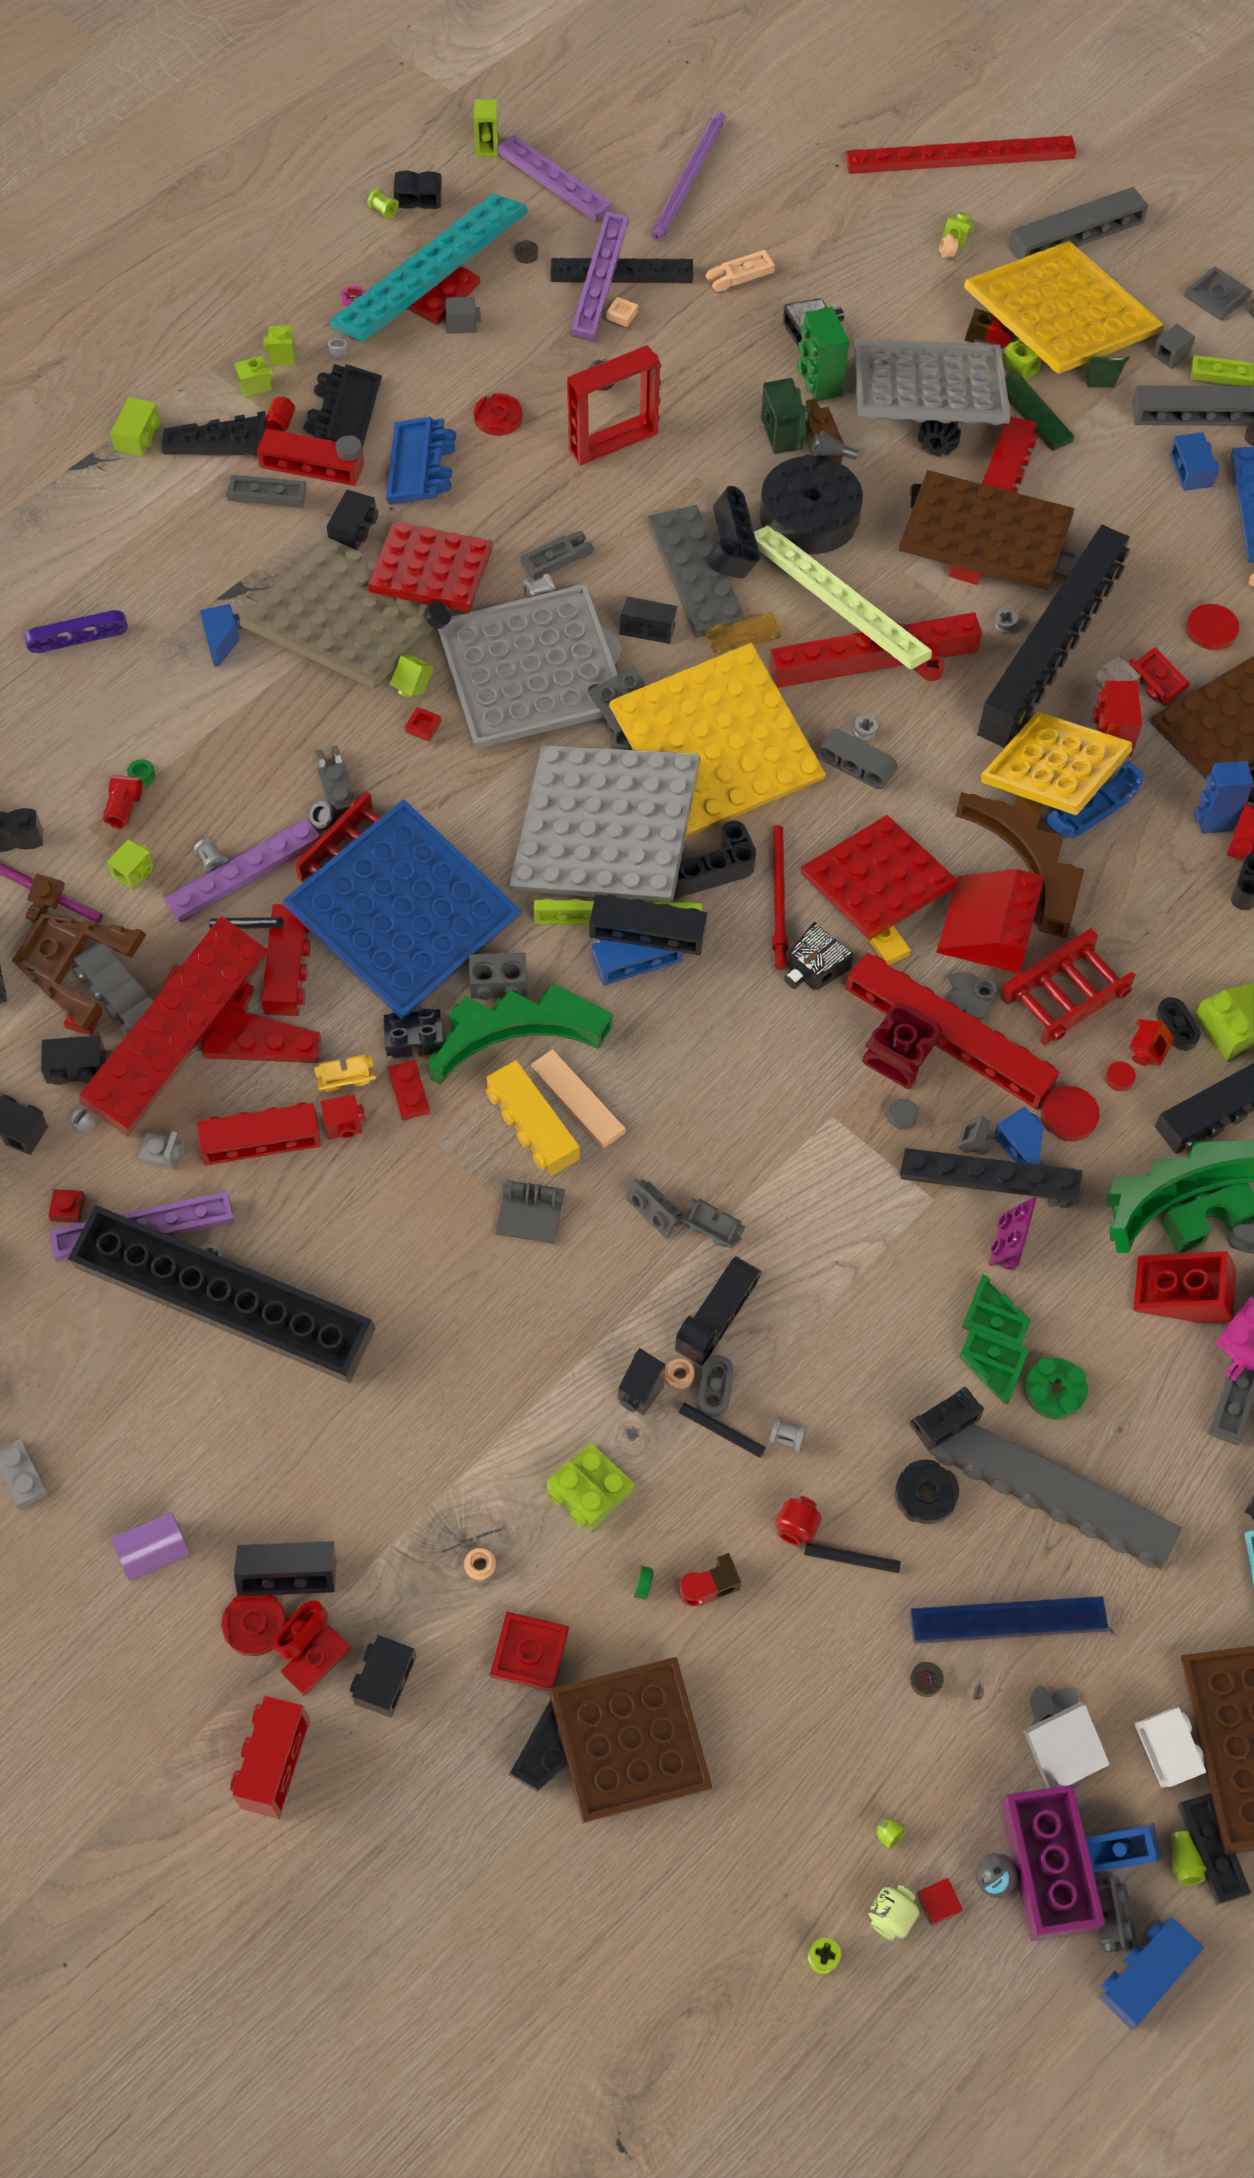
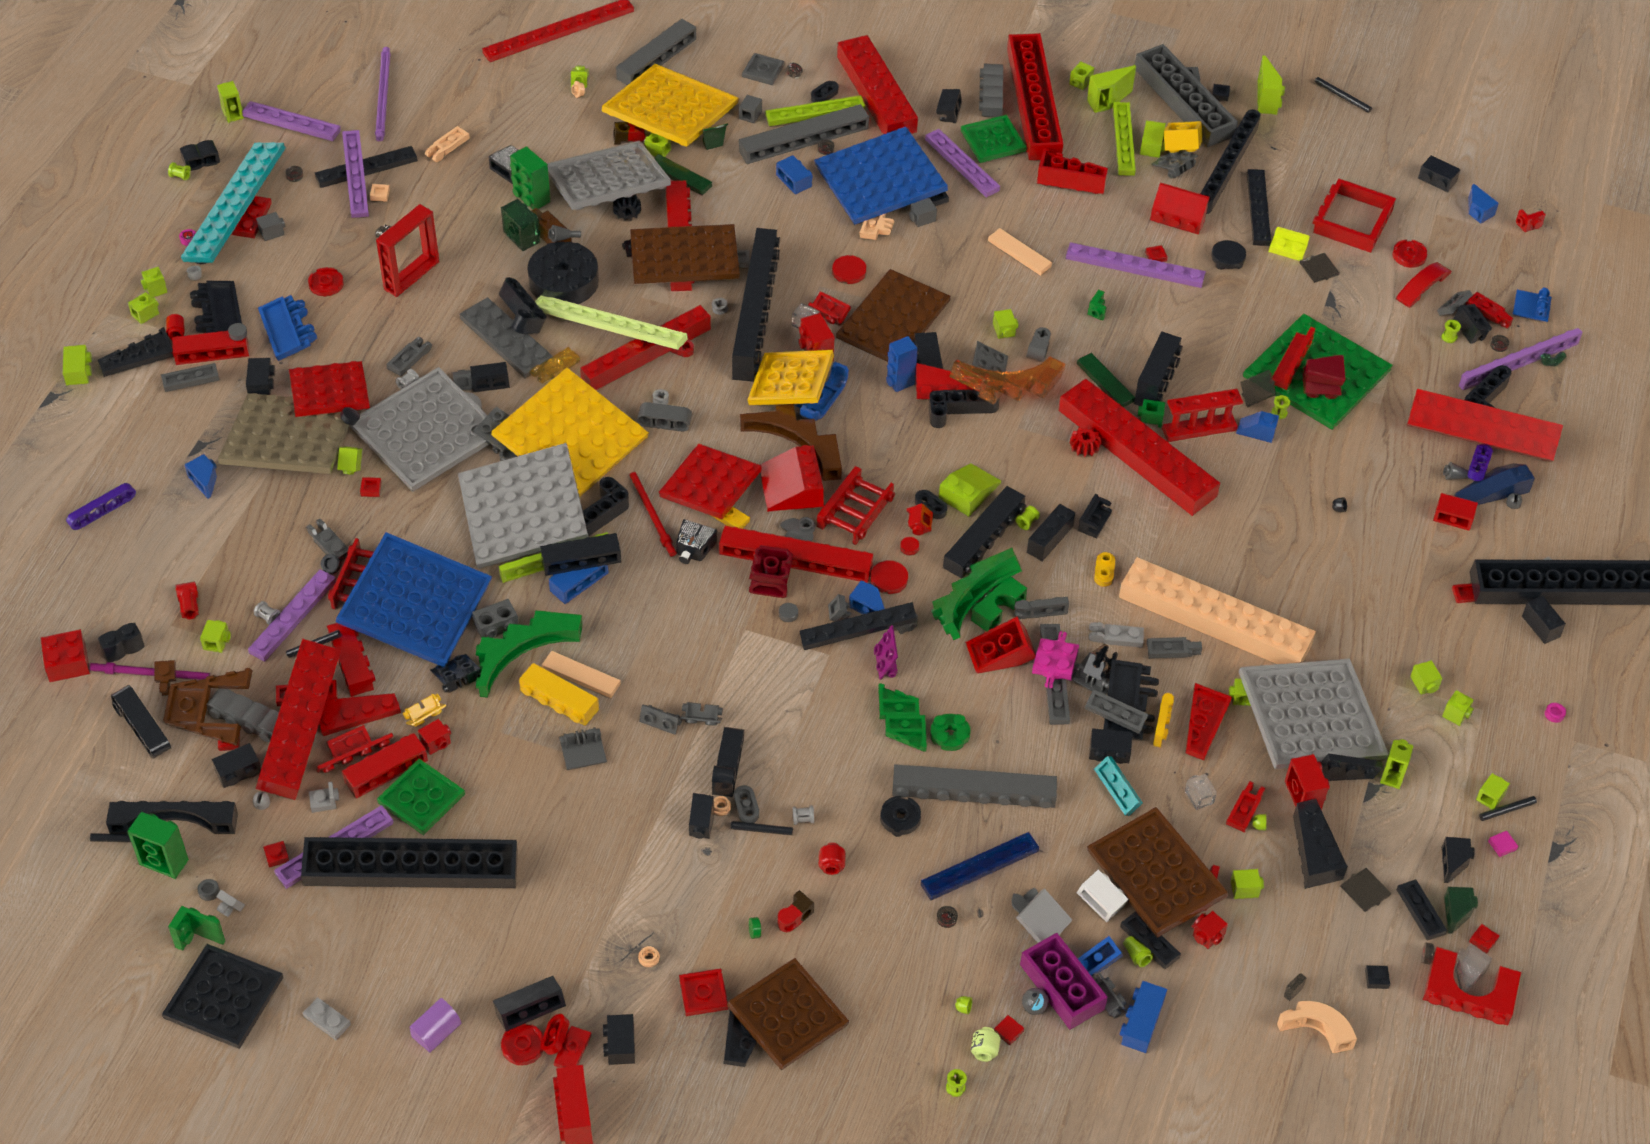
camera: 25 degrees left, 10 degrees down
(142, 769) = (190, 576): green tile -> none
(229, 1086) = (351, 744): none -> red bracket
(285, 1198) = (421, 796): none -> green plate
(408, 1090) = (469, 707): red plate -> none
(589, 1487) = (695, 889): lime plate -> none
(609, 612) = (463, 379): none -> dark grey tile
(853, 1558) = (873, 868): black bar -> none
(947, 1418) = (895, 766): black hinge -> none

